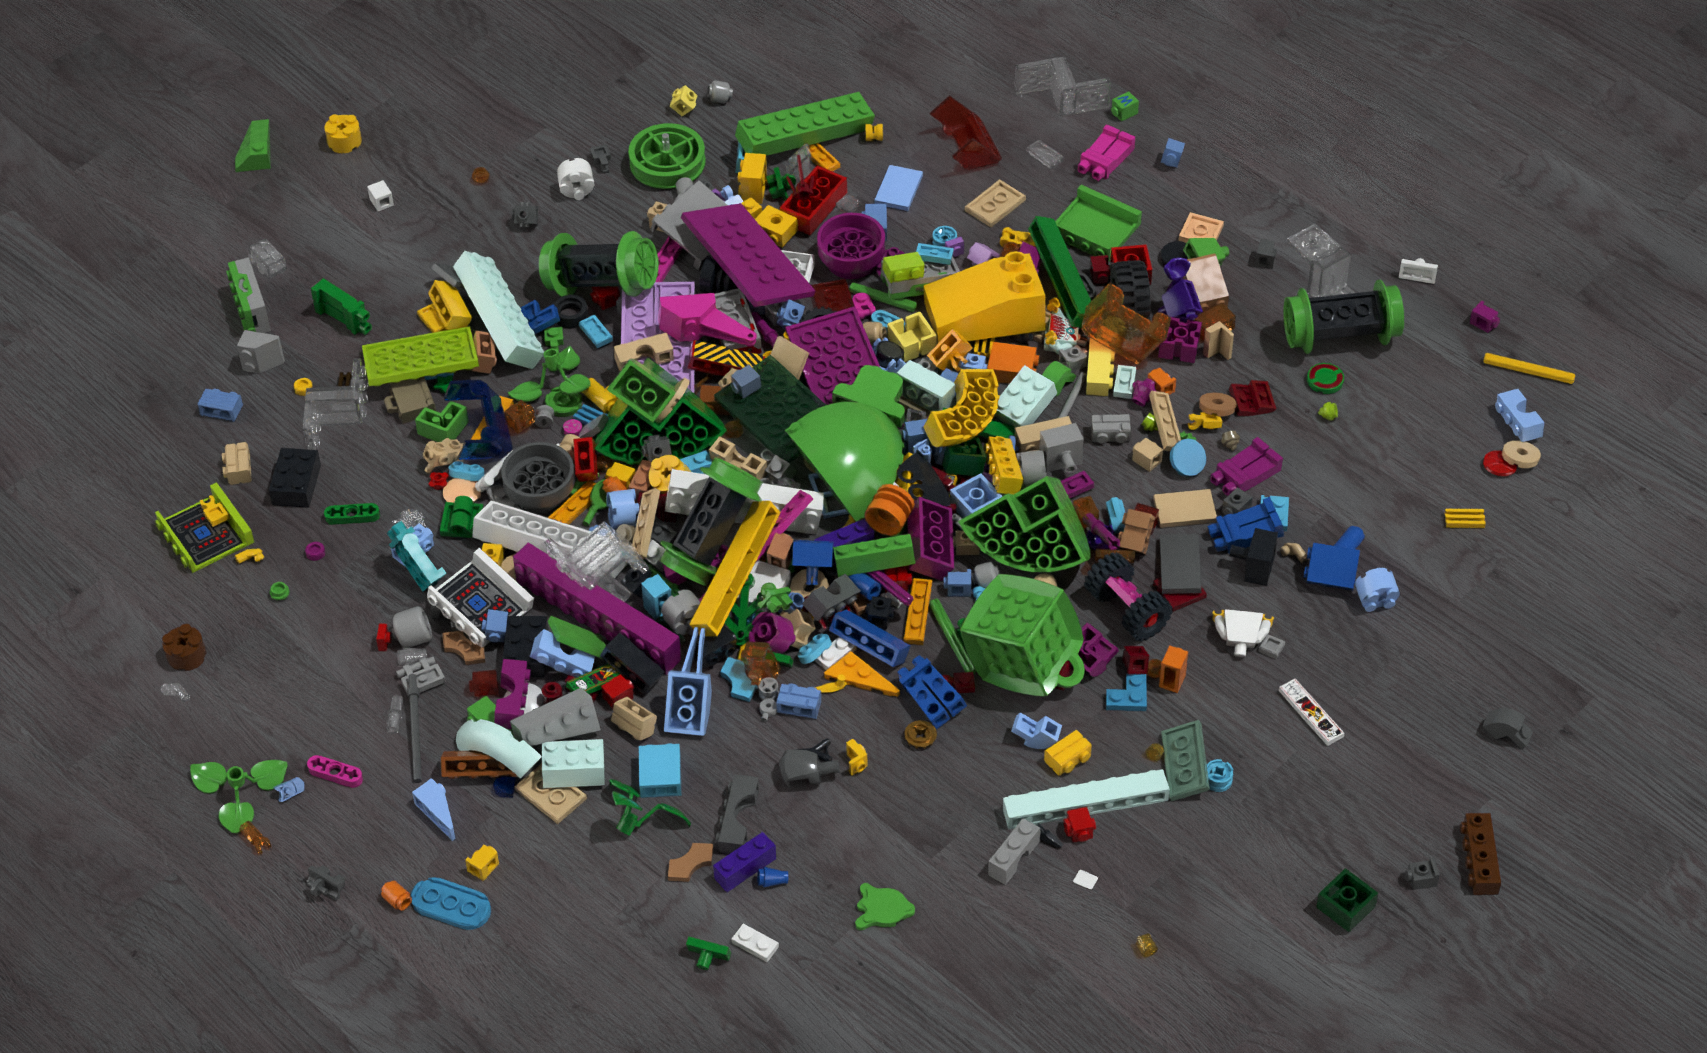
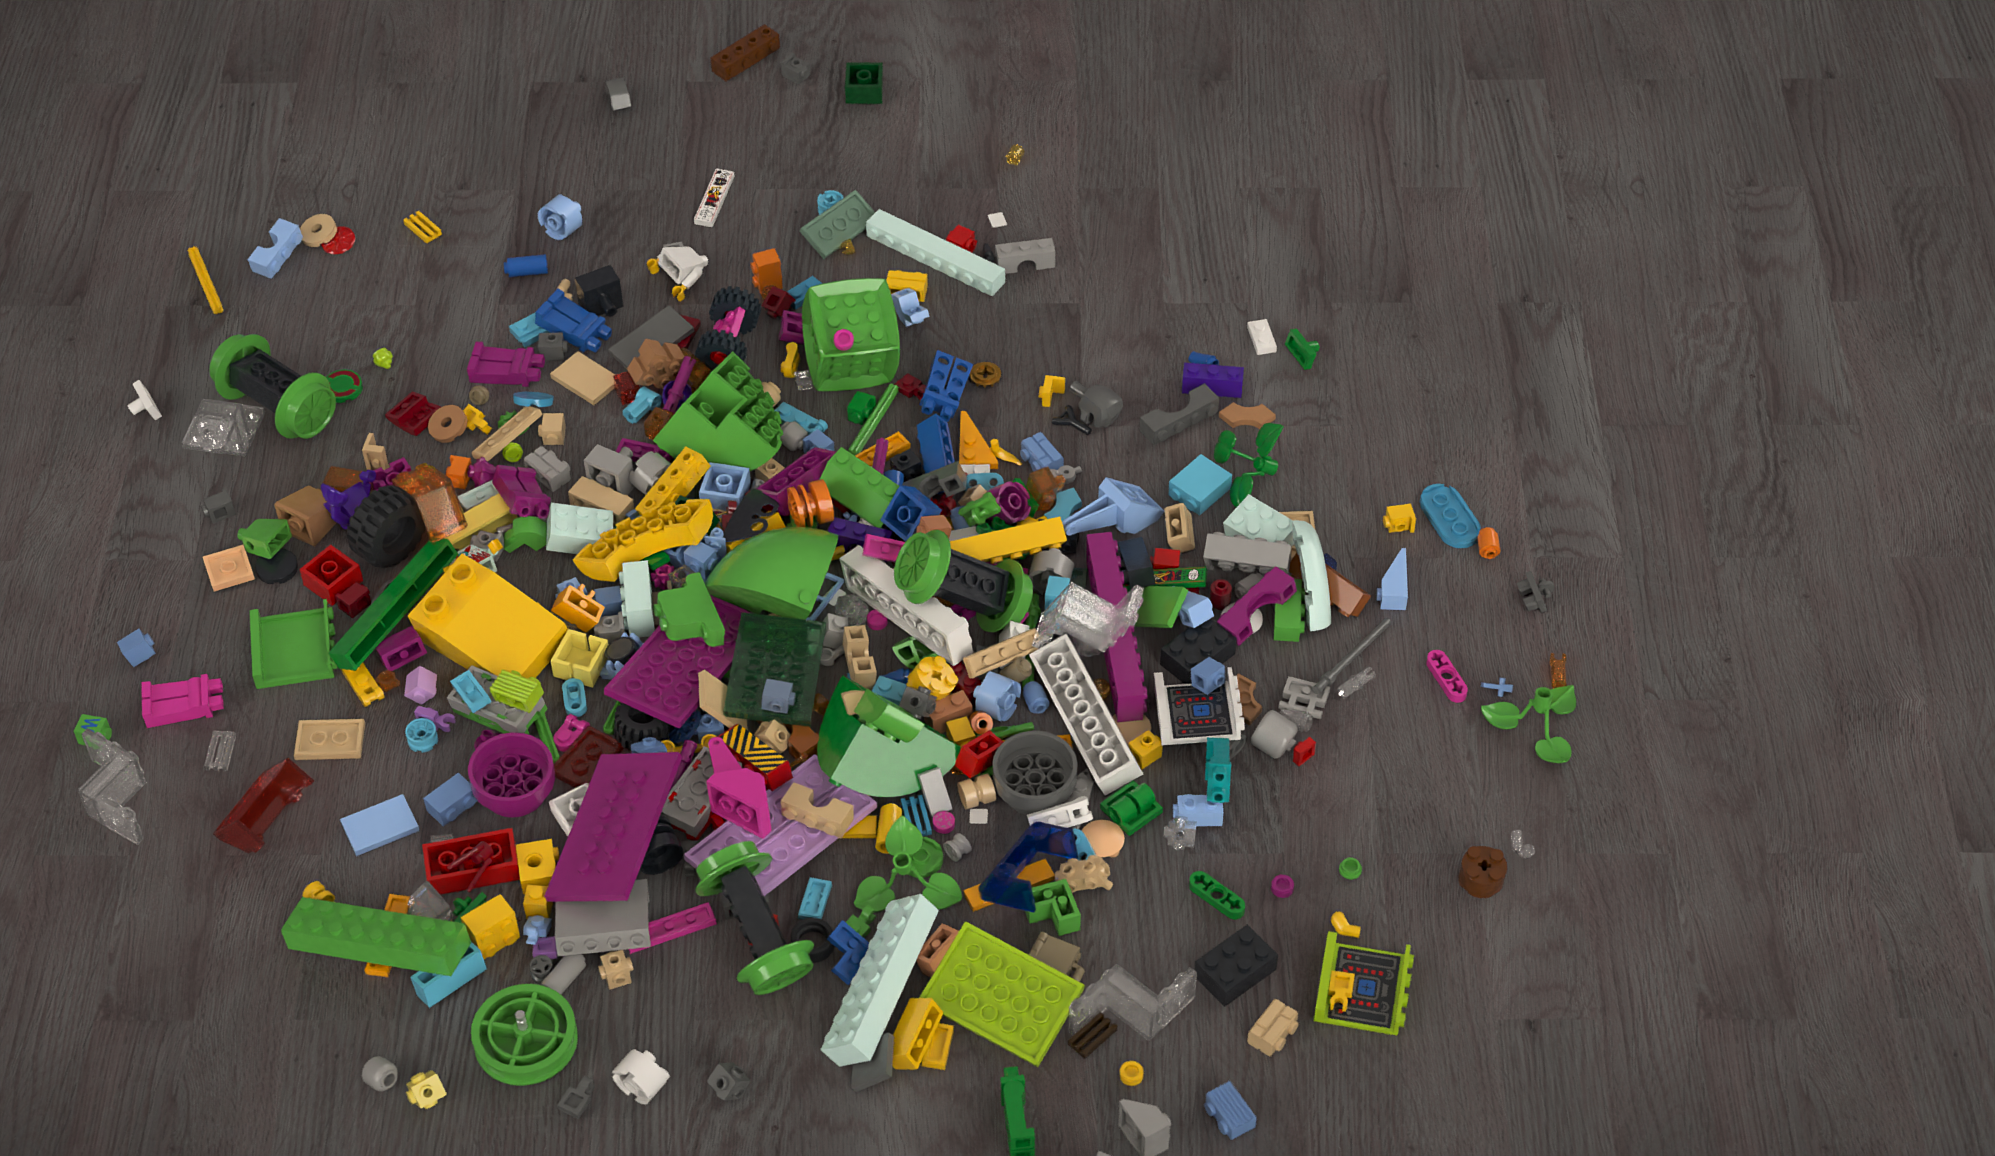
camera: 135 degrees left, 0 degrees up
(438, 480) = (1117, 864): red plate -> none
(484, 683) = (1260, 648): clear red brick -> none
(520, 416) = (978, 859): clear orange brick -> none
(874, 331) = (596, 695): tan head -> none
(882, 907) = (1151, 296): bright green tile -> none
(997, 591) = (843, 339): none -> dark pink tile
(1010, 359) = (536, 576): orange brick -> none
(1091, 388) = (521, 491): none -> magenta hips
(1332, 566) = (564, 251): blue brick -> none
(1484, 317) = (168, 332): magenta brick -> none

